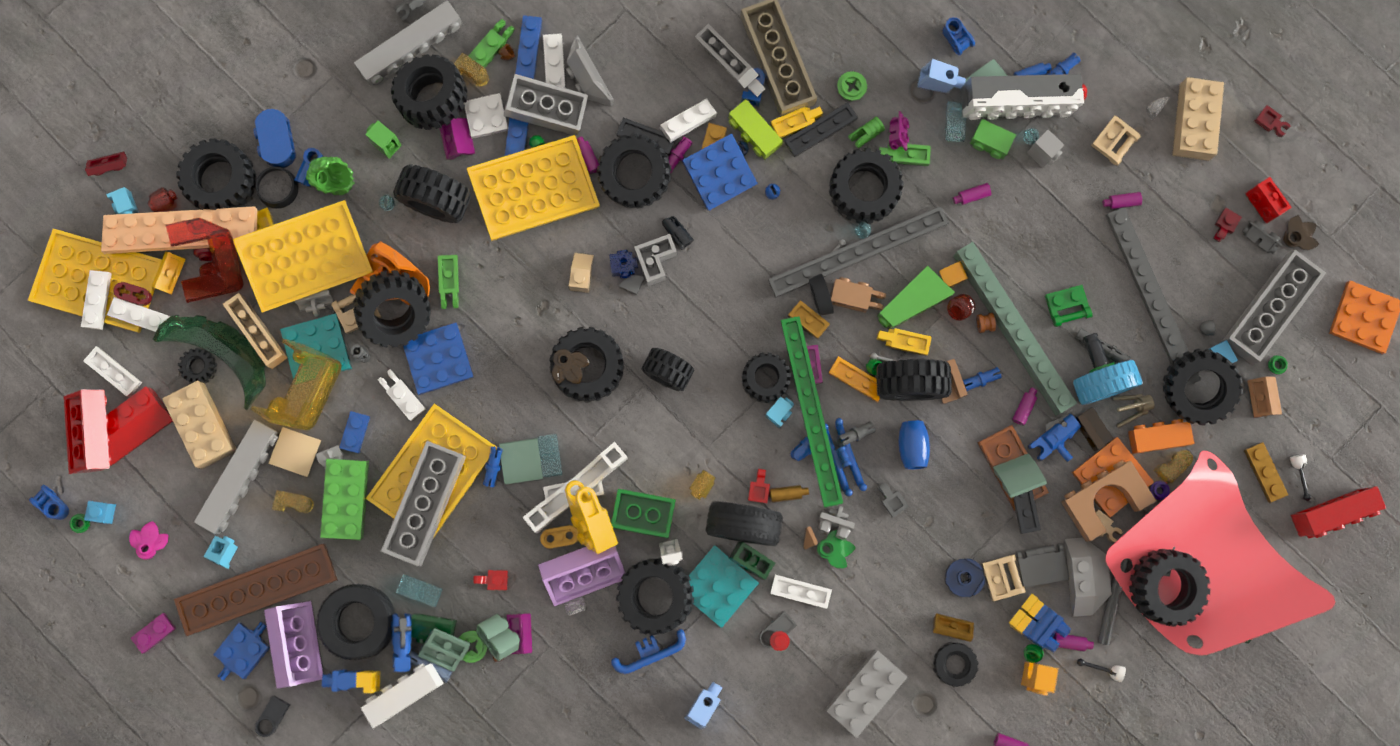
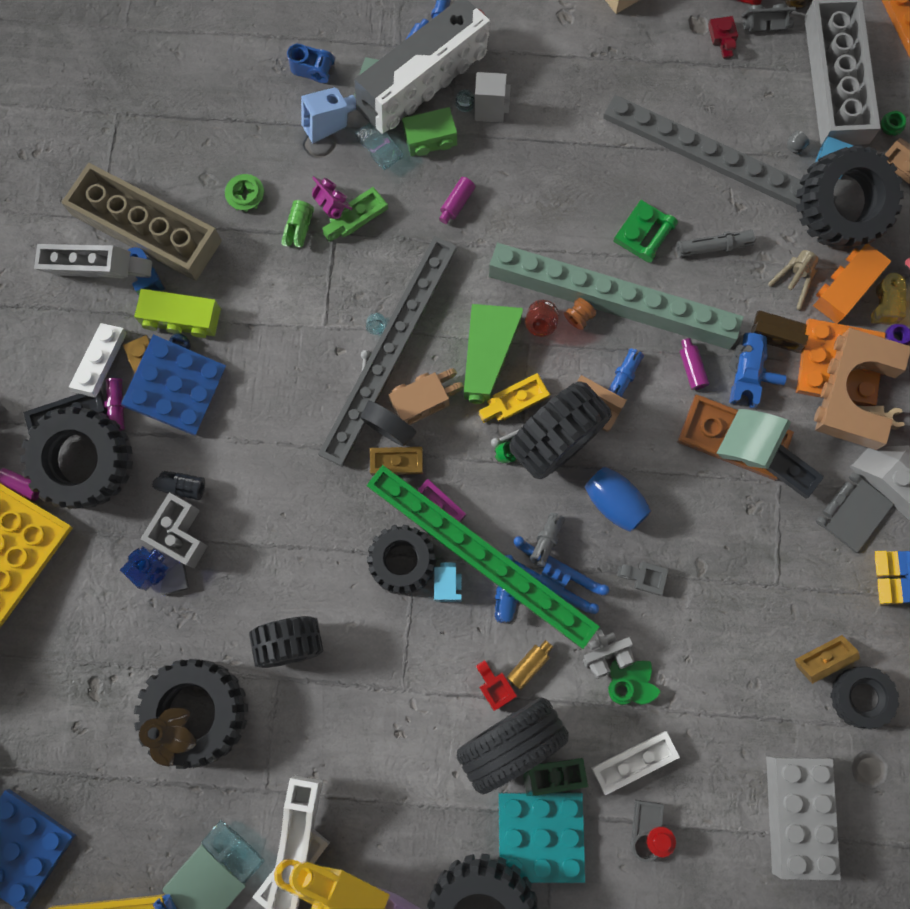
camera: 30 degrees left, 5 degrees down
(581, 272) = (107, 616): tan slope -> none
(643, 513) = (390, 830): green brick -> none
(670, 552) = (457, 850): white plate -> none
(702, 485) = (430, 737): clear yellow brick -> none
(769, 194) = (247, 365): blue hinge -> none
(795, 121) = (214, 270): yellow hinge -> none
(809, 538) = (595, 695): medium nougat slope -> none
(821, 129) = (247, 259): black plate -> none
(855, 378) = (496, 481): light orange tile -> none
(870, 162) = (334, 246): black tyre -> none
(953, 274) = (505, 291): light orange slope -> none
(953, 578) = (802, 605): dark blue plate -> none
(997, 578) = (824, 566): tan plate -> none
(1105, 378) = (750, 267): dark azure wheel -> none
(1111, 135) = (542, 40): tan plate -> none
(1123, 200) = (608, 89): magenta cylinder -> none

